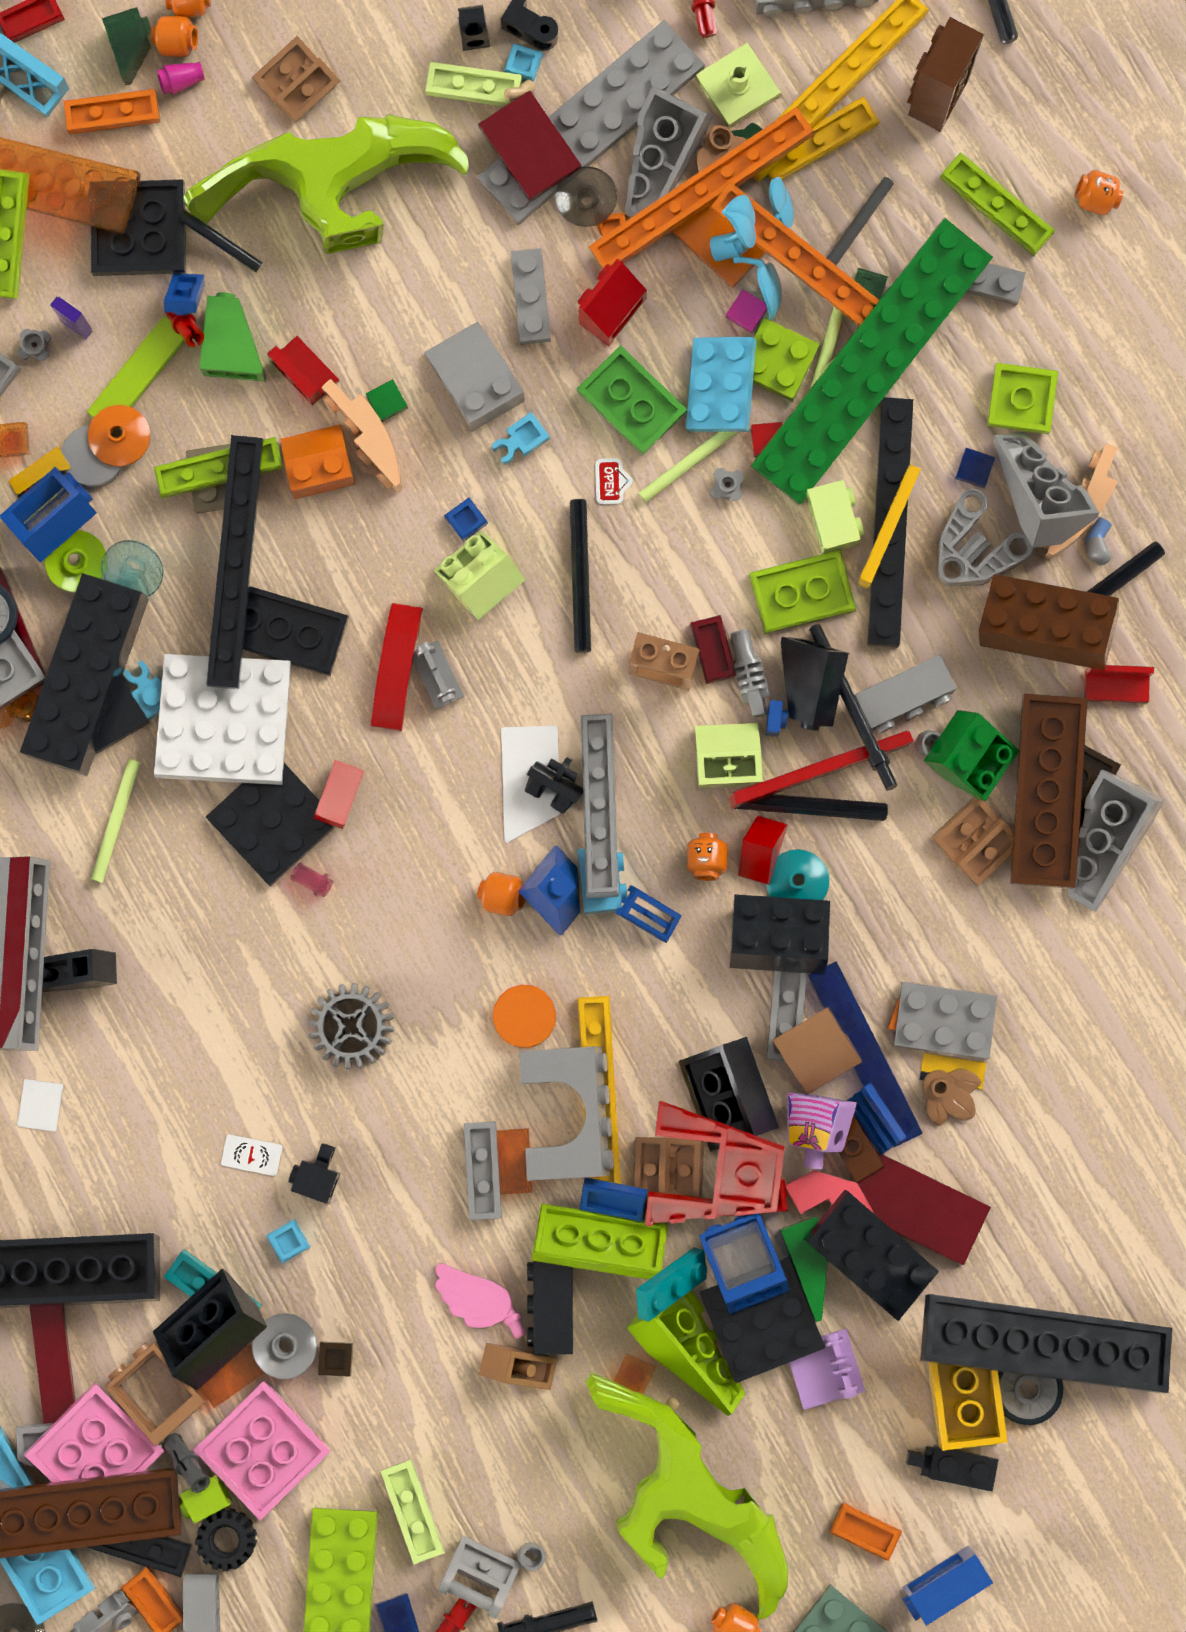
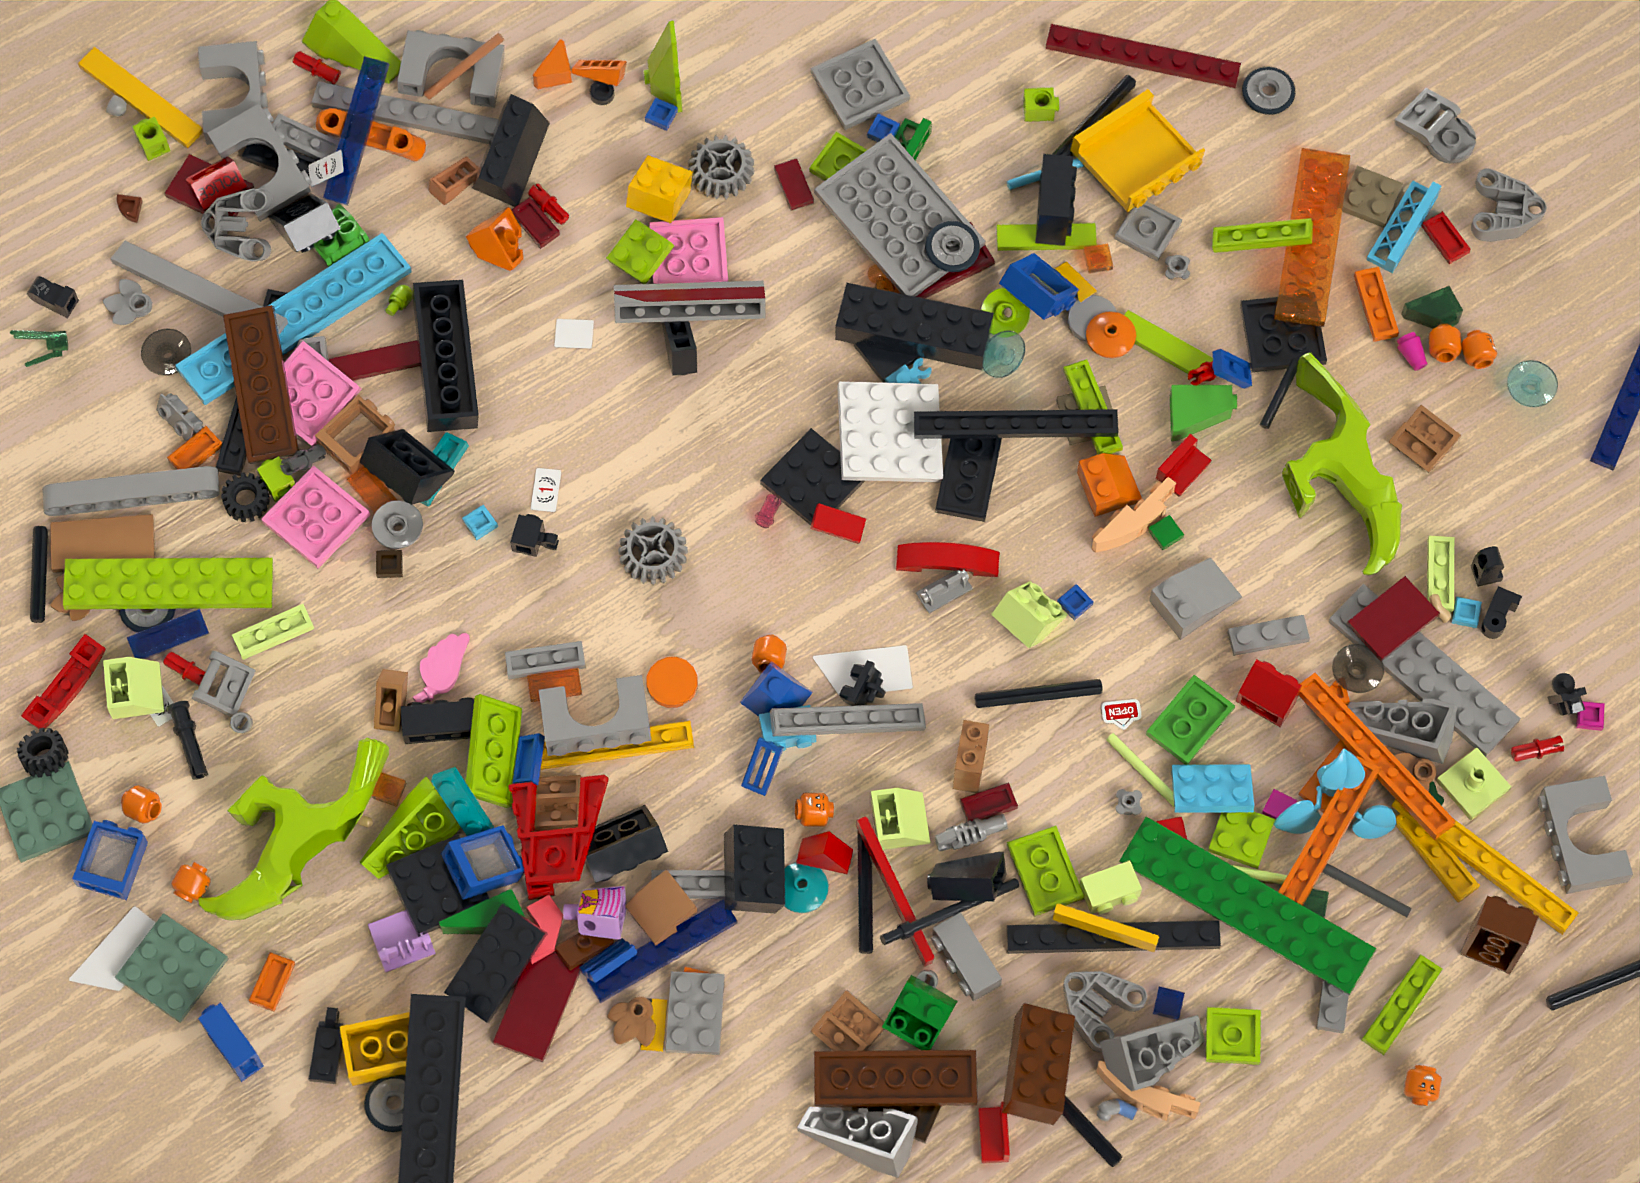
camera: 80 degrees right, 15 degrees down
(71, 317) = (1200, 287): dark purple tile -> none
(115, 821) = (802, 364): yellowish green bar -> none
(524, 436) = (1148, 639): medium azure plate -> none
(776, 718) = (935, 854): blue plate -> none

